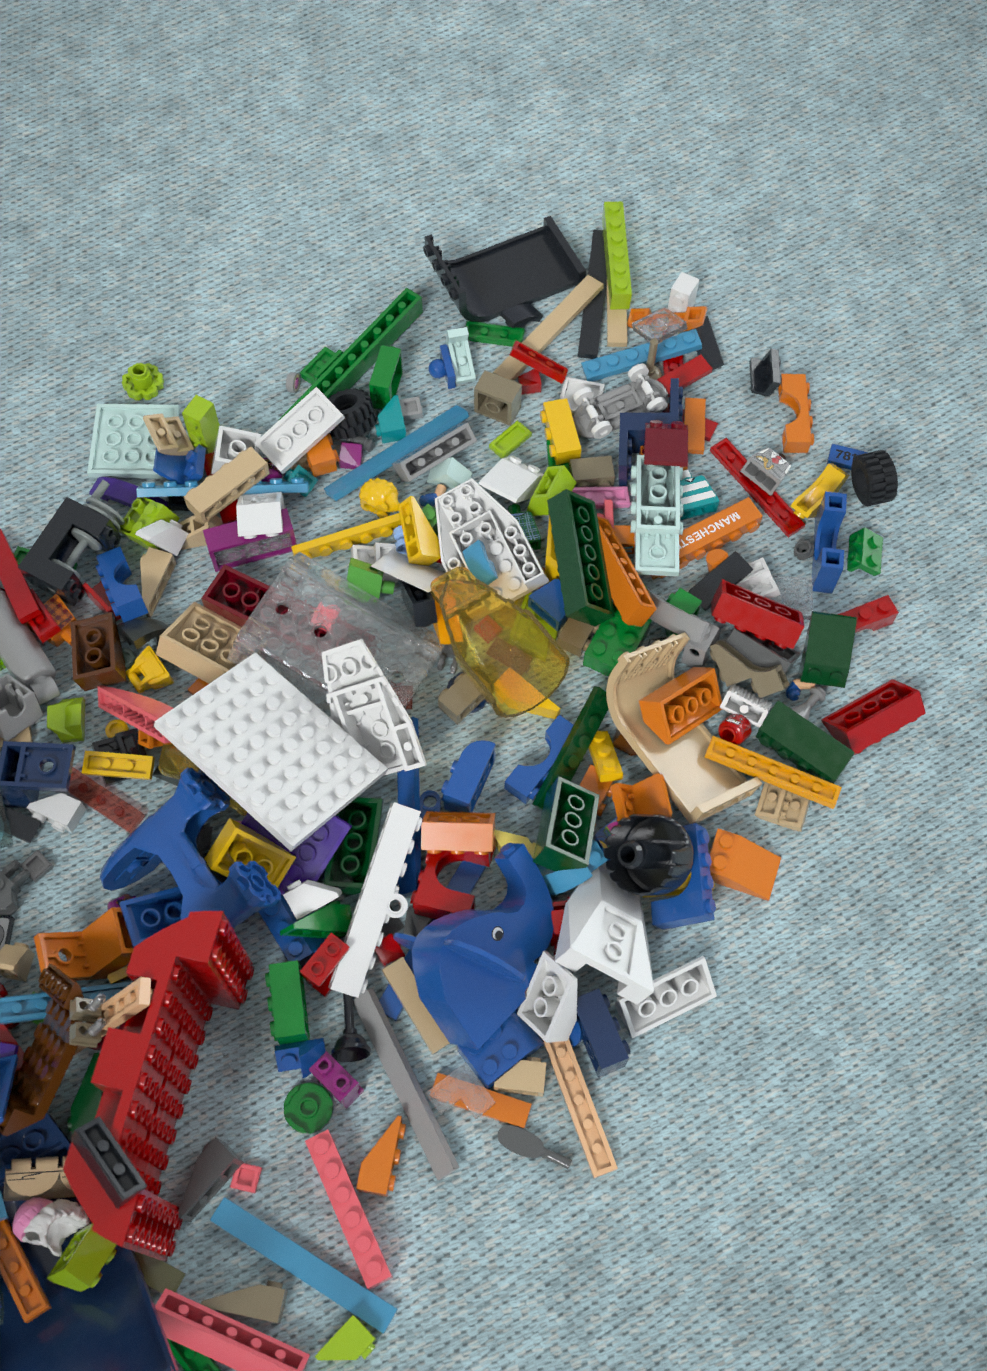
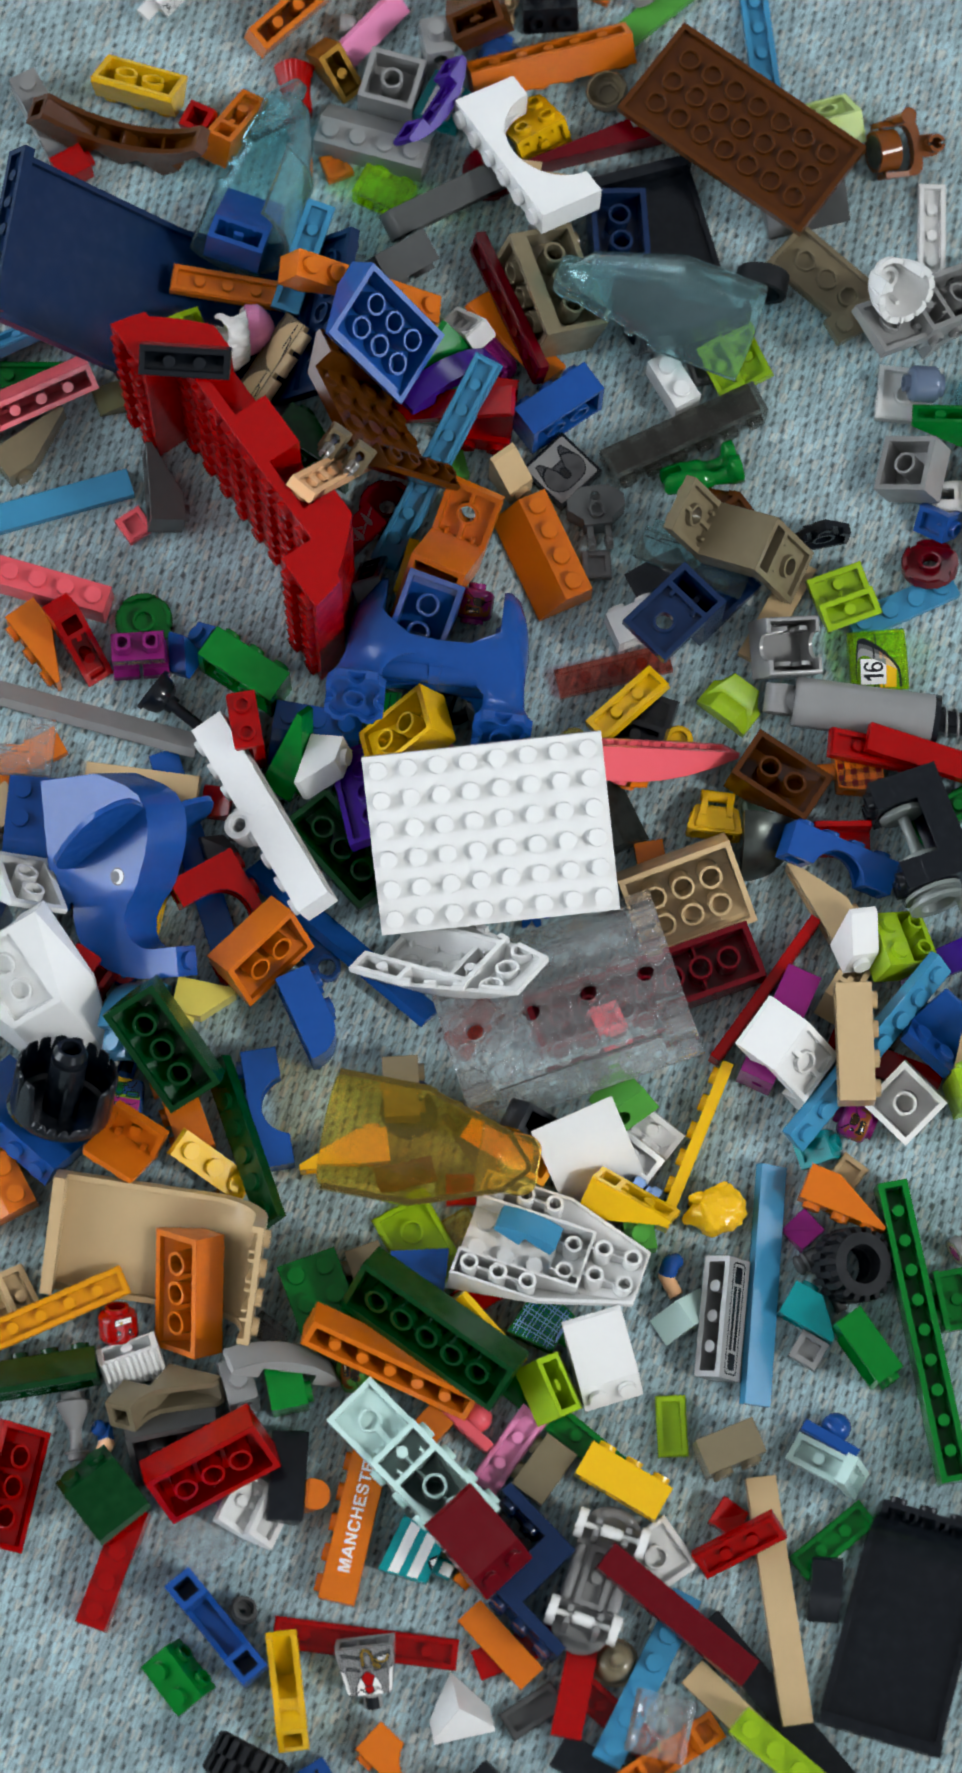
camera: 130 degrees right, 10 degrees up
(55, 895) = (542, 556): none -> orange slope
(209, 571) = (764, 991): none -> red tile
(299, 430) = (863, 1180): white plate -> none
(358, 1132) = (77, 639): none -> red slope
(600, 361) = (677, 1615): none -> dark red tile
(713, 394) = (530, 1711): none -> dark grey tile
(744, 419) = (459, 1713): none -> white slope

